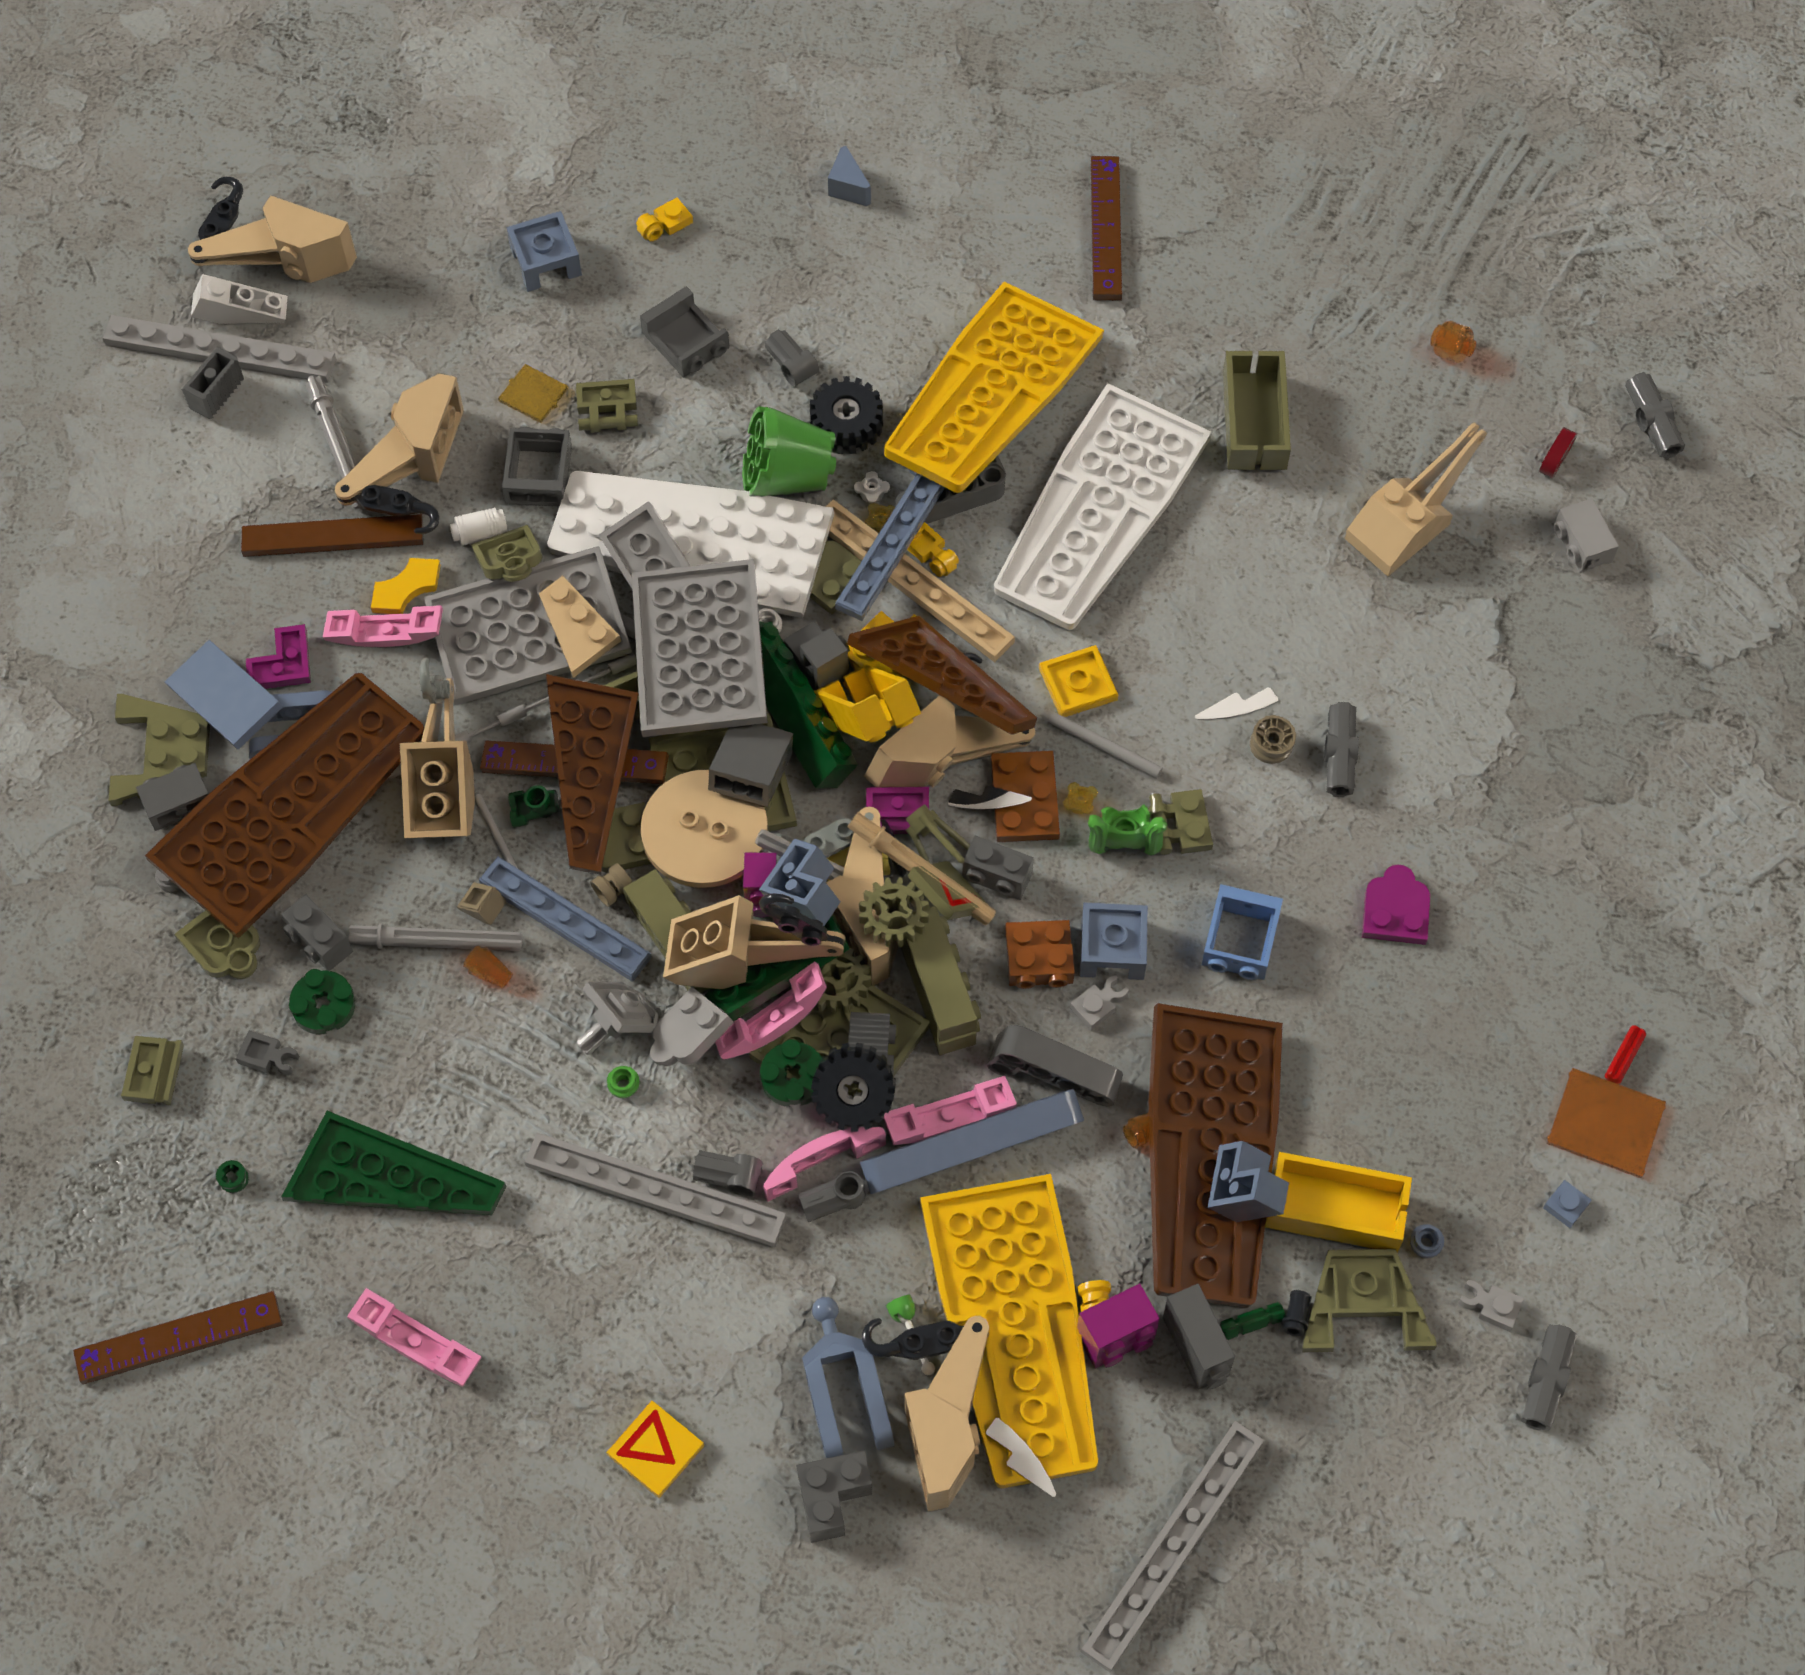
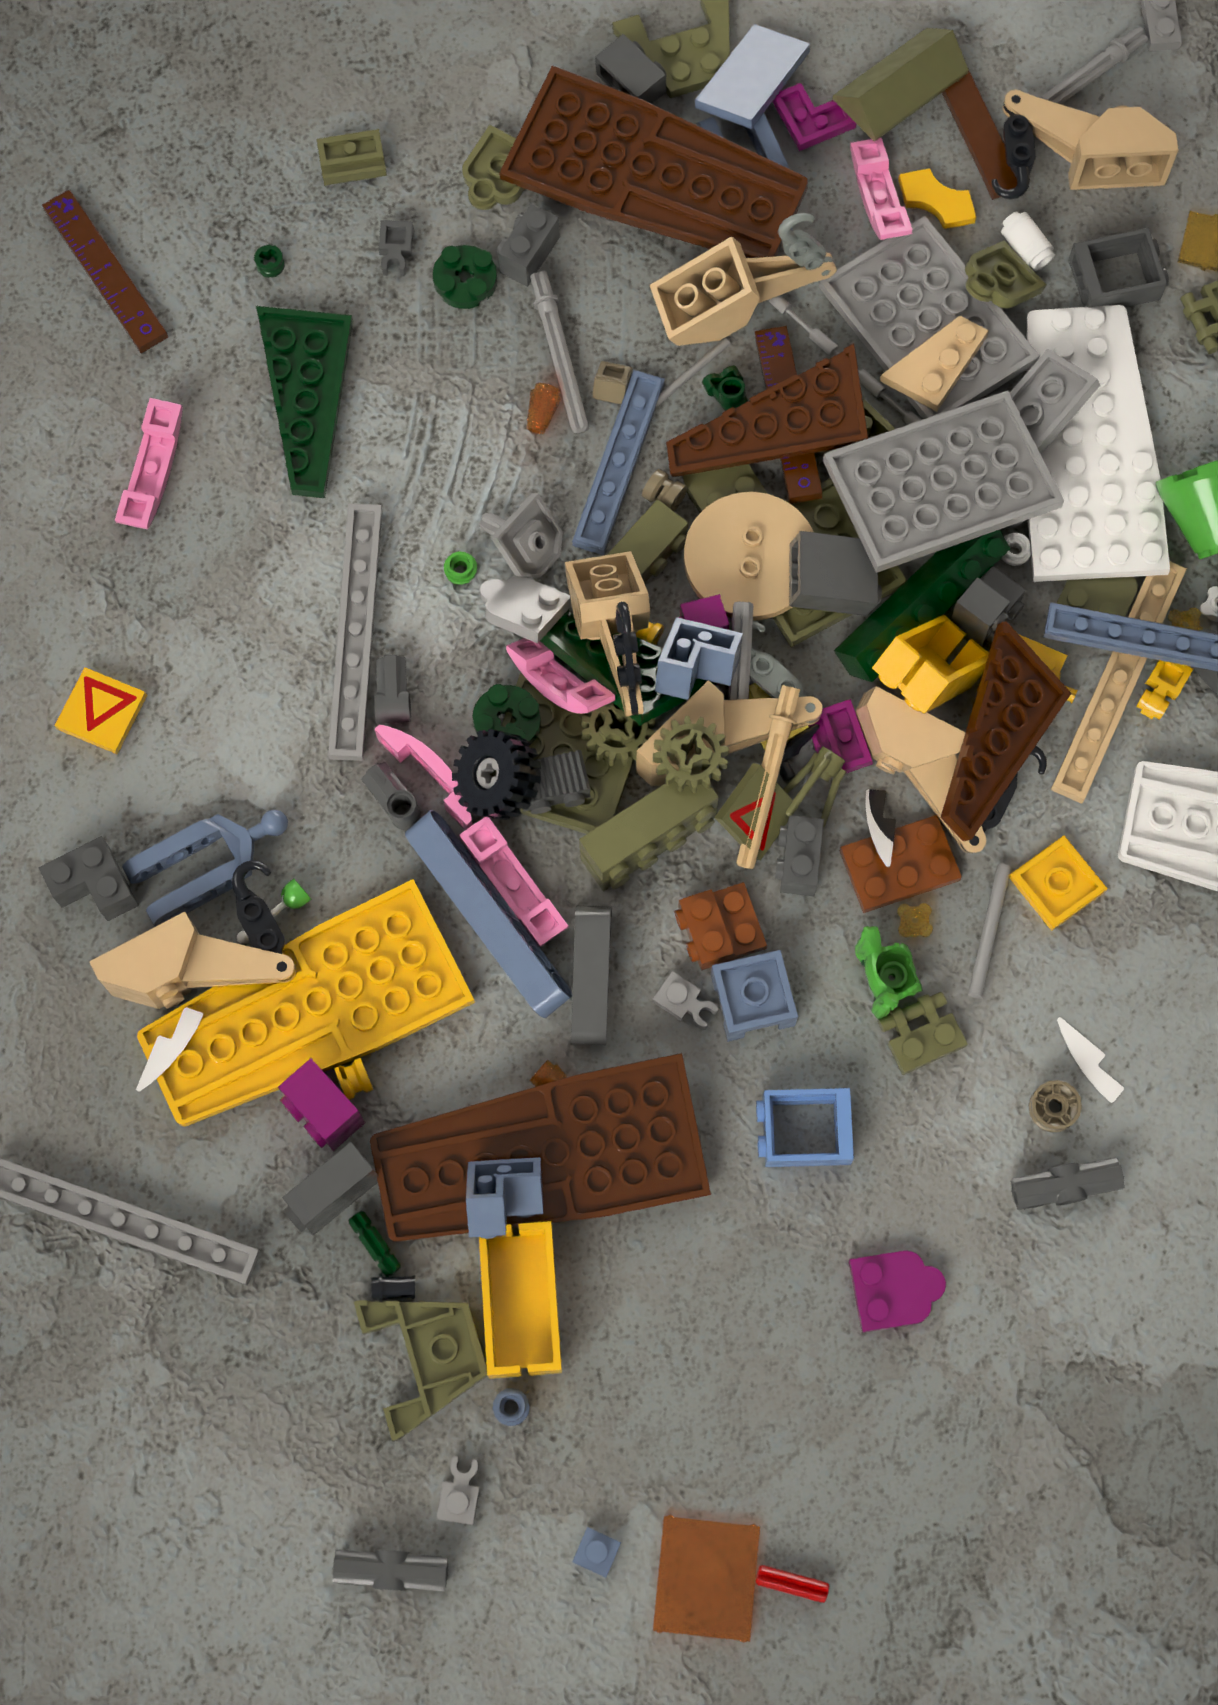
camera: 75 degrees right, 10 degrees up
(281, 575) = (903, 81): none -> olive slope

